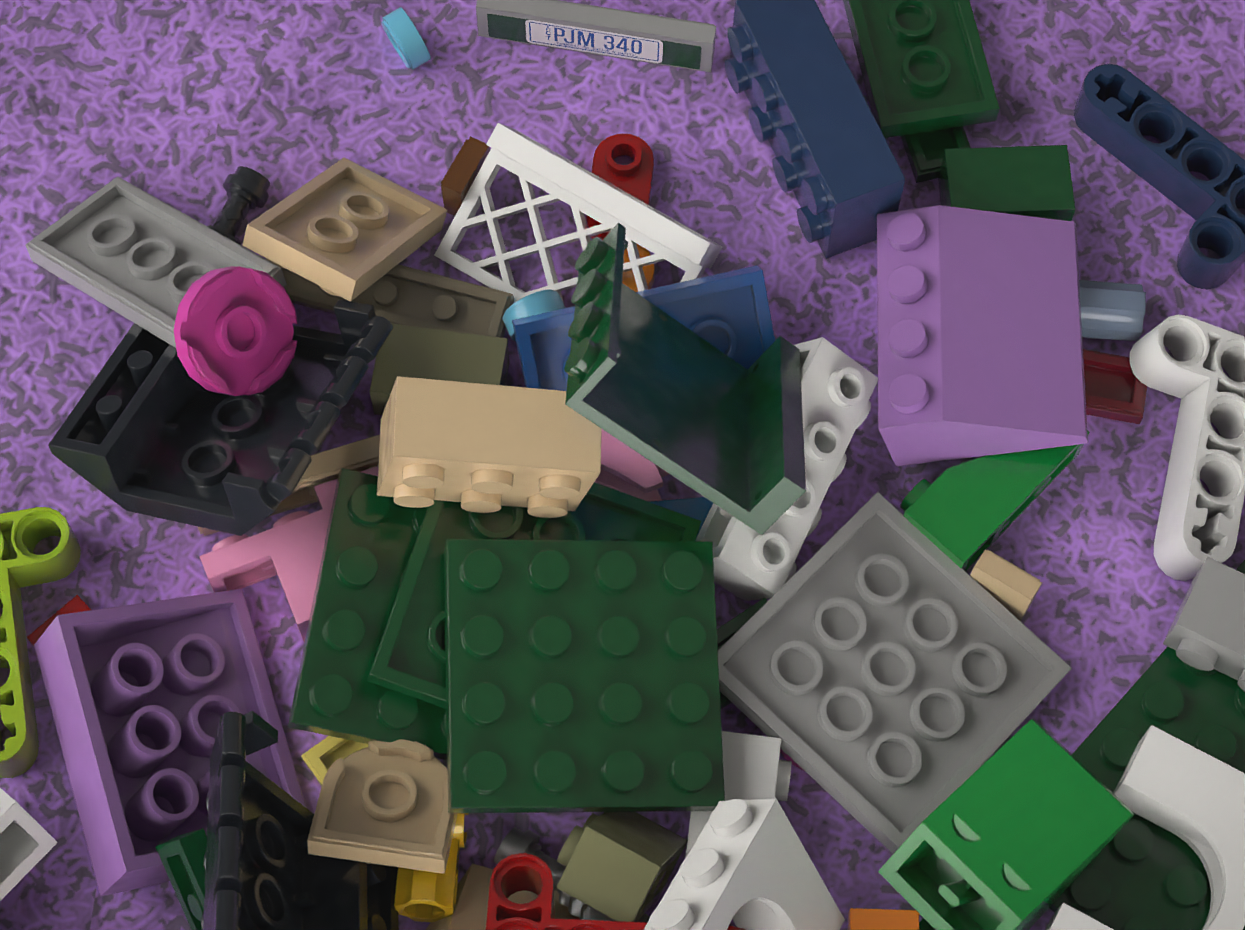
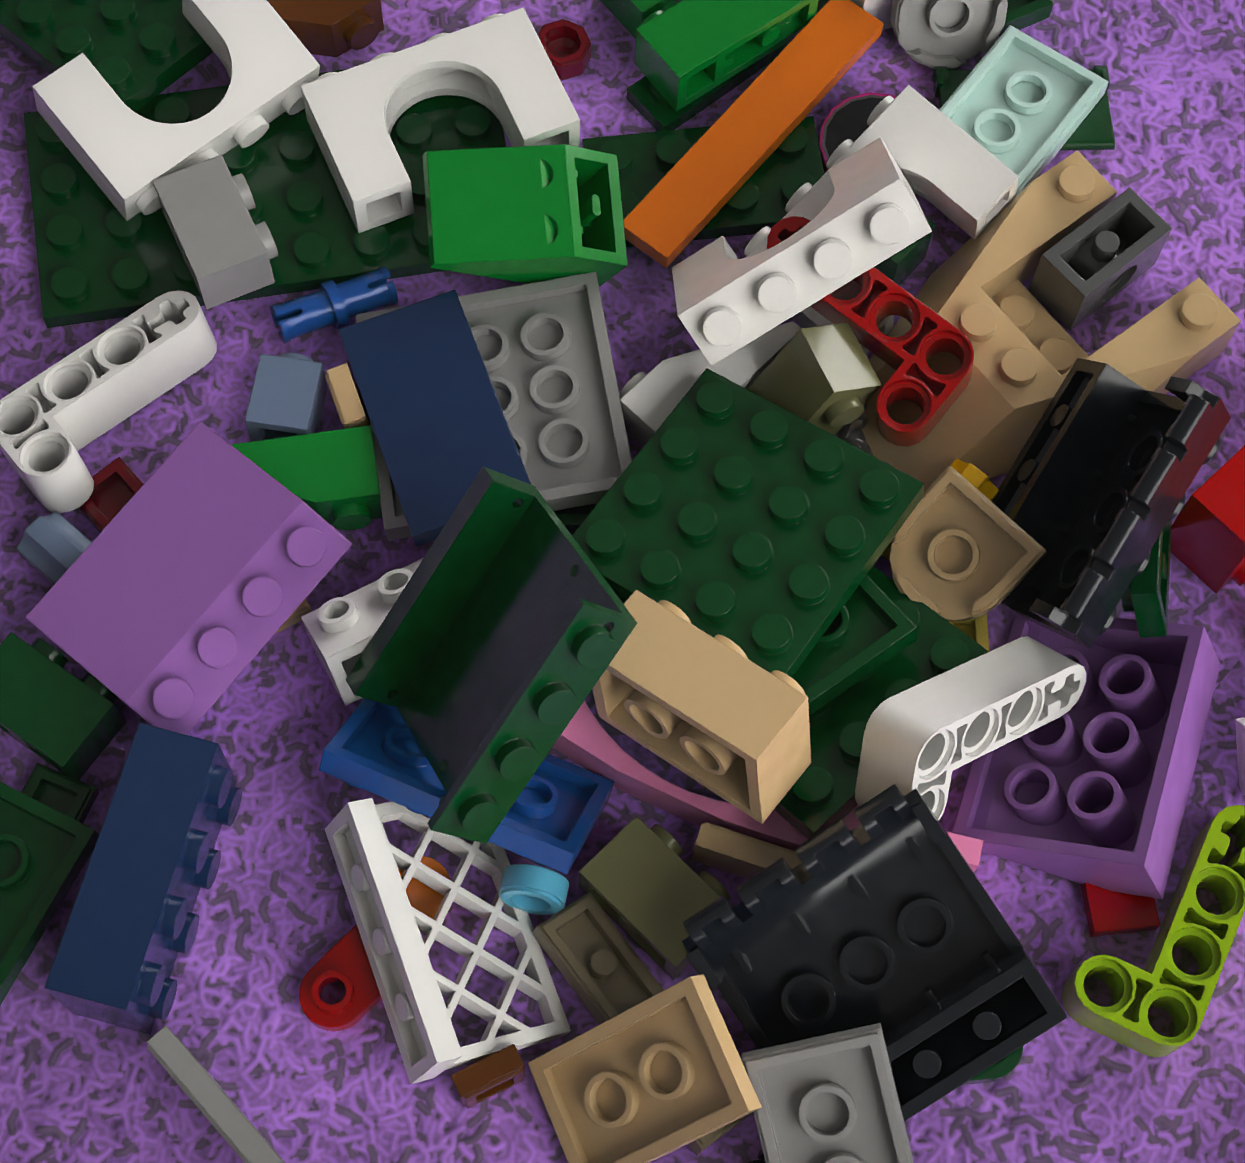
camera: 145 degrees left, 0 degrees up
(235, 331) = (826, 1017): dark pink tile -> none
(284, 628) = (962, 716): none -> white beam
(919, 610) = (430, 407): none -> dark blue tile
(1056, 549) = (286, 397): none -> sand blue brick
(1100, 671) = (334, 304): none -> blue pin

